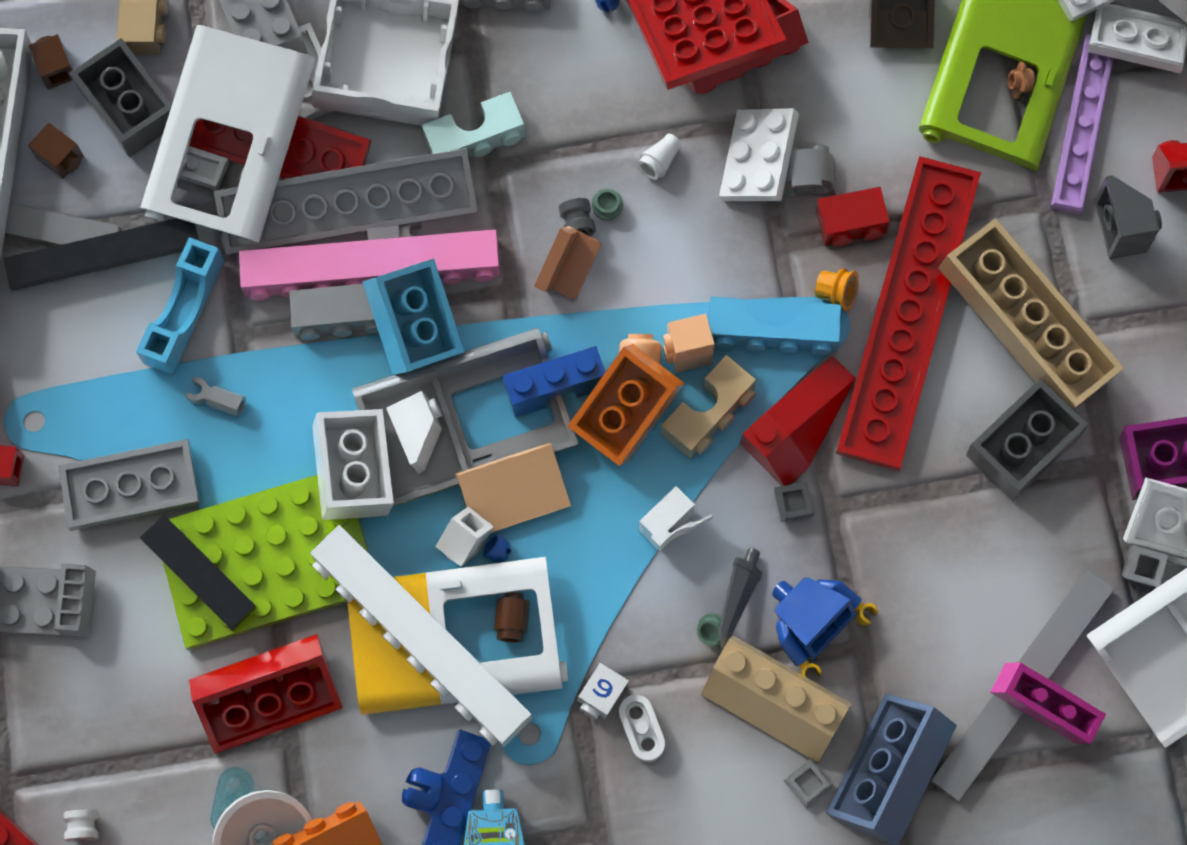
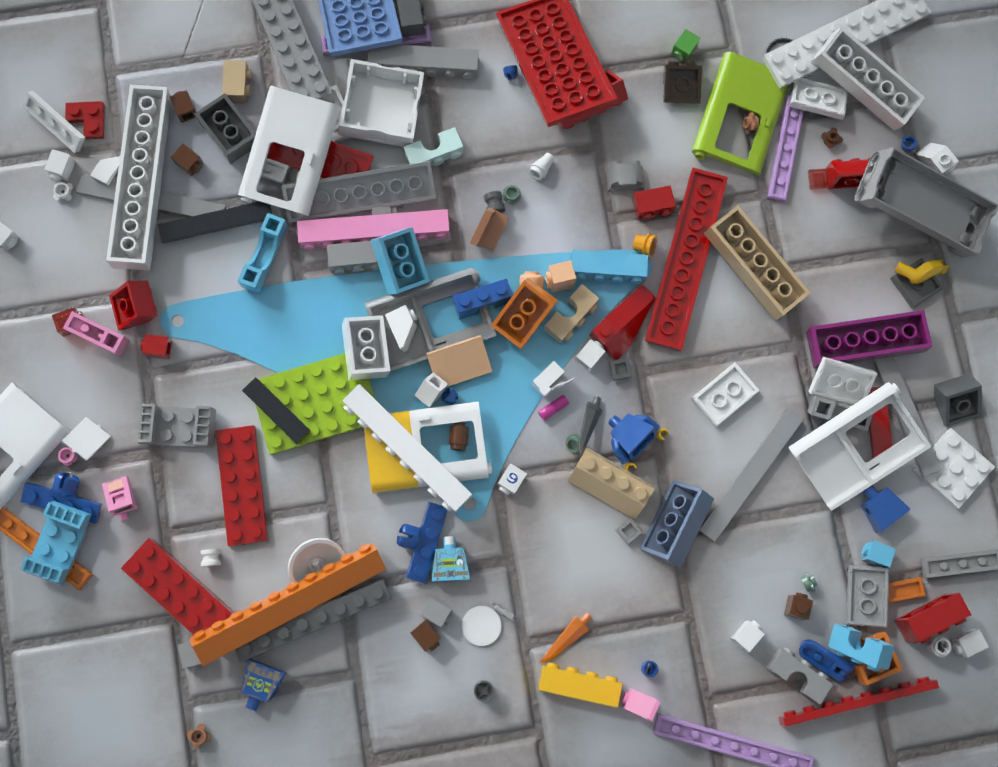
camera: 10 degrees left, 5 degrees up
(129, 485) = (234, 358): light grey plate -> none
(136, 702) = (241, 485): none -> red plate
(217, 398) = (285, 307): light grey bar -> none
(225, 796) = (295, 541): clear light blue plate -> none
(265, 694) = (316, 481): red slope -> none
(642, 729) = (534, 500): white plate -> none
(676, 568) = (553, 407): none -> dark pink axle
(741, 477) = (590, 355): none -> white brick
(759, 155) = (600, 166): white plate -> none
(977, 545) = (725, 394): none -> white tile
(1026, 439) = (754, 333): dark grey brick -> none
(1048, 703) = (766, 486): dark pink brick -> none
(1126, 218) = (811, 205): dark grey slope -> none
(1140, 173) = (818, 178): none -> clear red tile
(1158, 112) = (830, 143): none -> reddish brown plate

